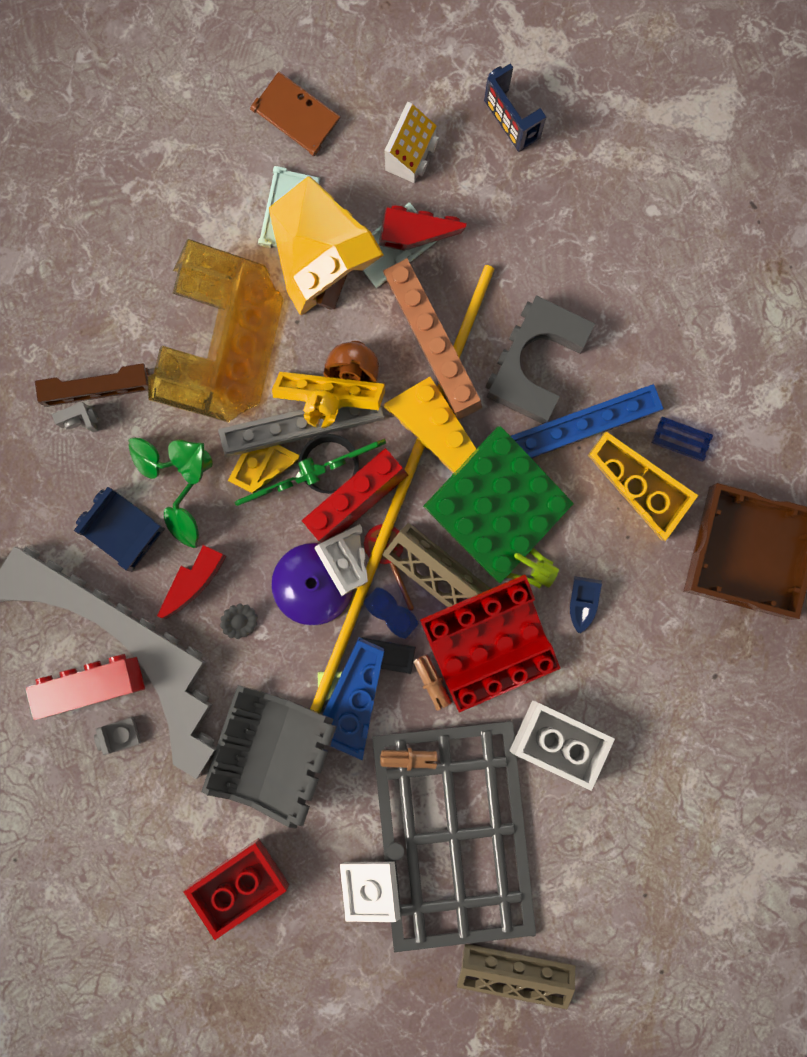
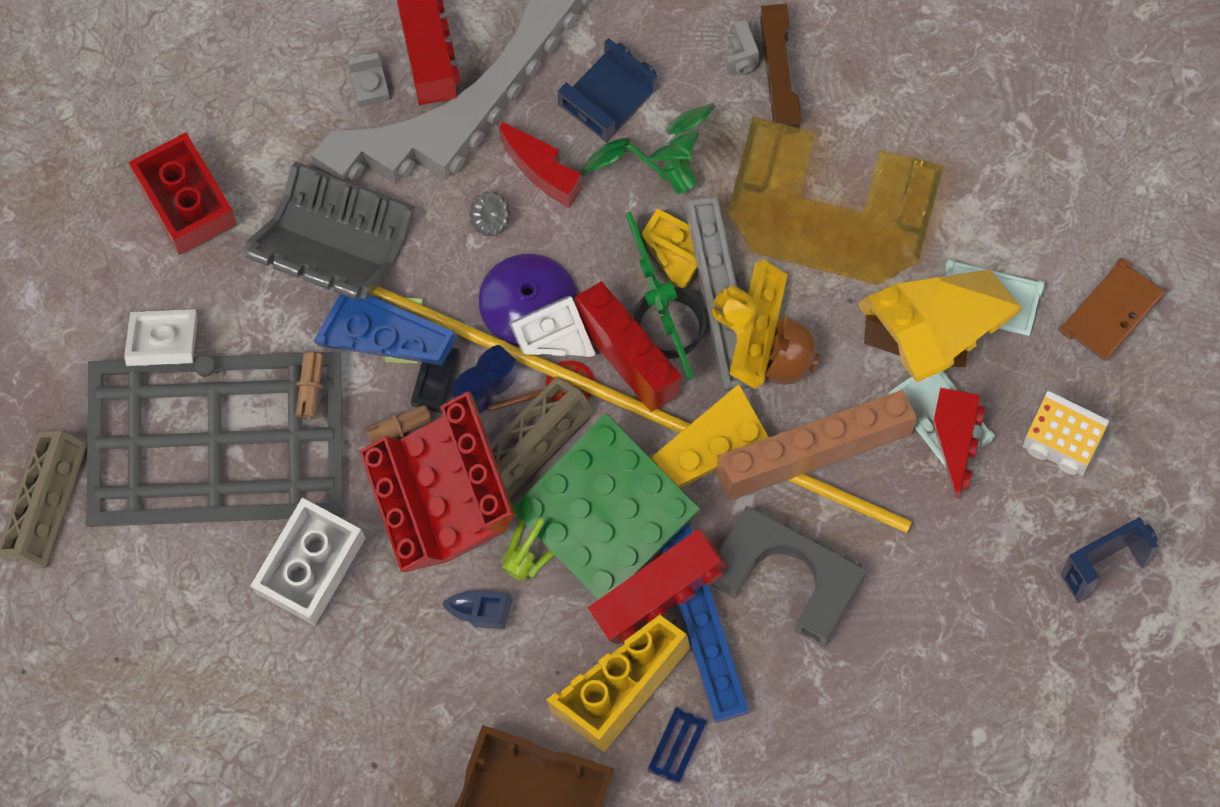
camera: 95 degrees right, 15 degrees down
(564, 457) = (659, 587): none -> red brick

